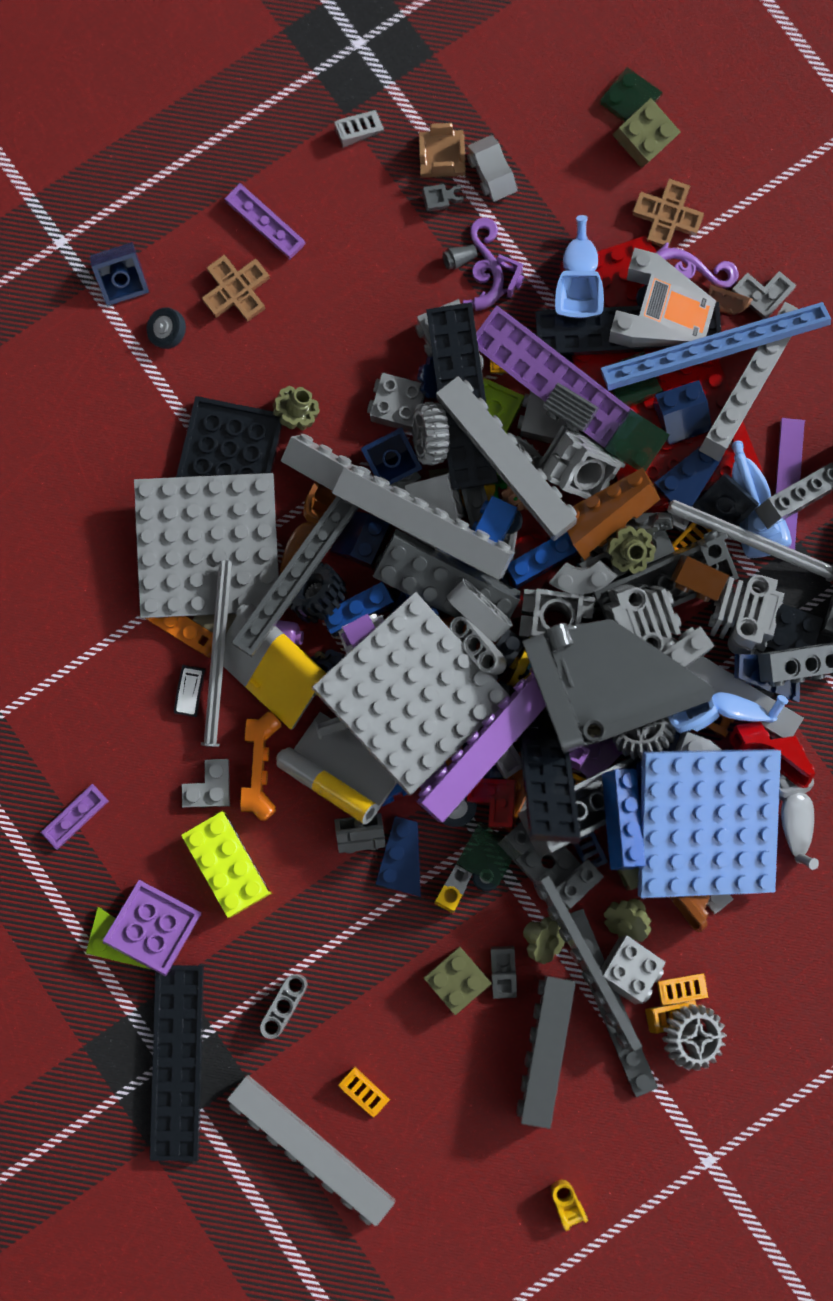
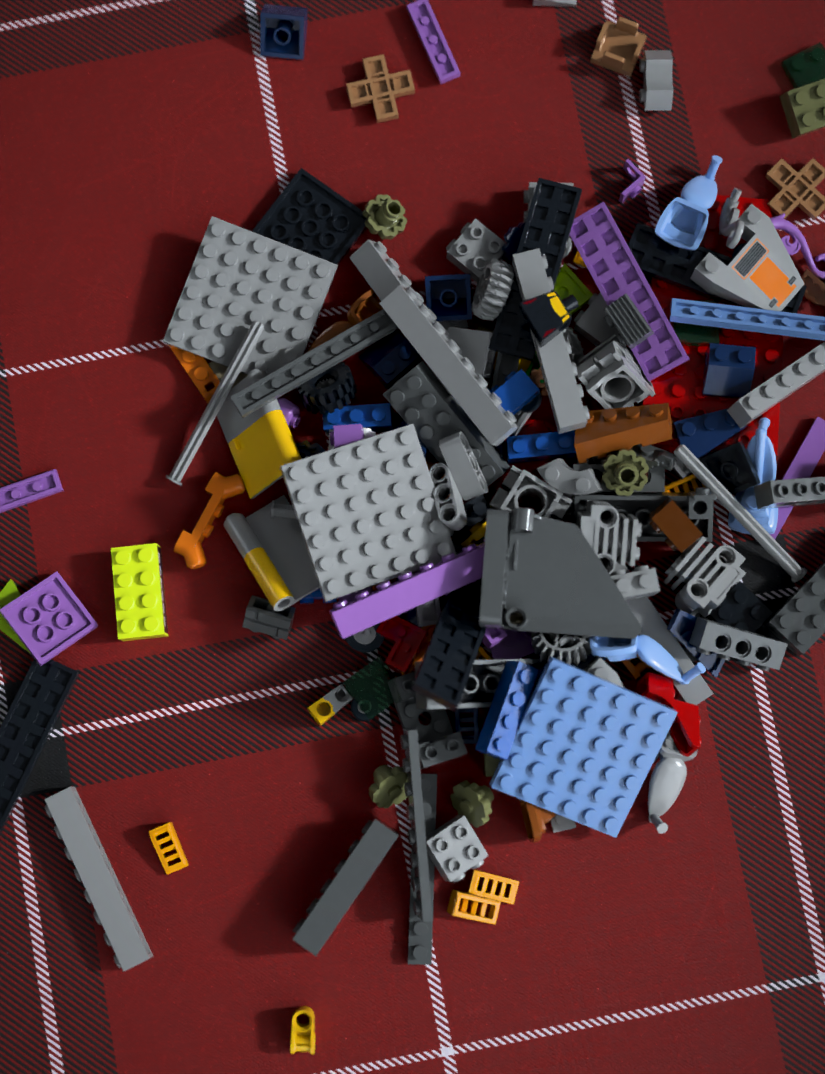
camera: 20 degrees right, 0 degrees up
(166, 328) = (302, 96): black wheel -> none
(189, 690) = (177, 425): white slope -> none
(214, 791) = (157, 523): light grey plate -> none
(275, 1014) = (122, 744): light grey beam -> none
(401, 858) = (296, 656): dark blue wing -> none
(438, 198) = (597, 86): dark grey plate -> none
(457, 980) = (296, 787): olive brick -> none
(458, 256) = (589, 145): dark grey cone -> none
(490, 263) = (617, 165): medium lavender plant -> none
(496, 435) = (547, 315): none -> black torso
(503, 972) = (341, 798): dark grey slope -> none
(620, 272) = (728, 221): none -> light grey plant
(636, 441) = (674, 377): clear green plate -> none
(701, 1048) = (480, 951): light grey gear -> none

